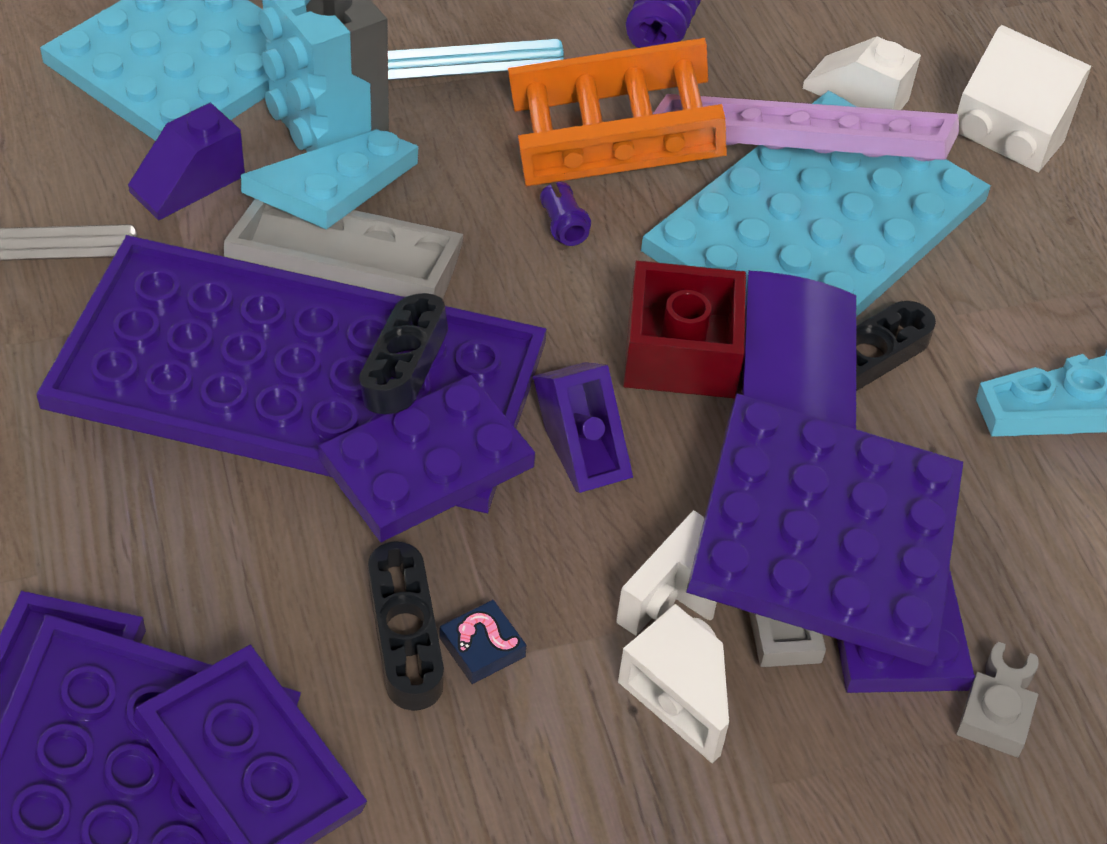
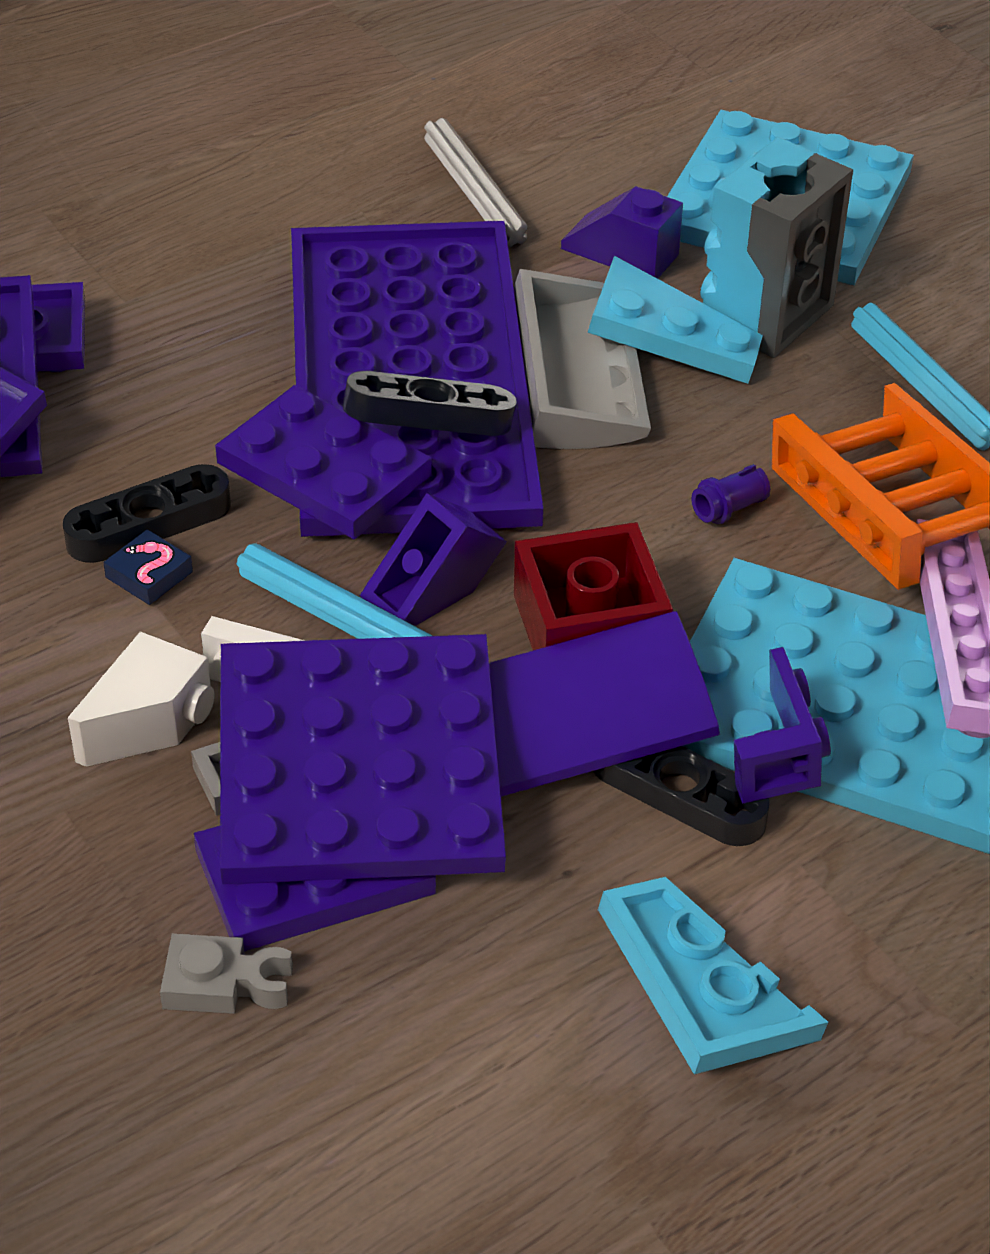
camera: 75 degrees right, 5 degrees down
(597, 508) = (321, 596): none -> medium azure axle
(877, 248) = (784, 758): none -> dark purple bracket

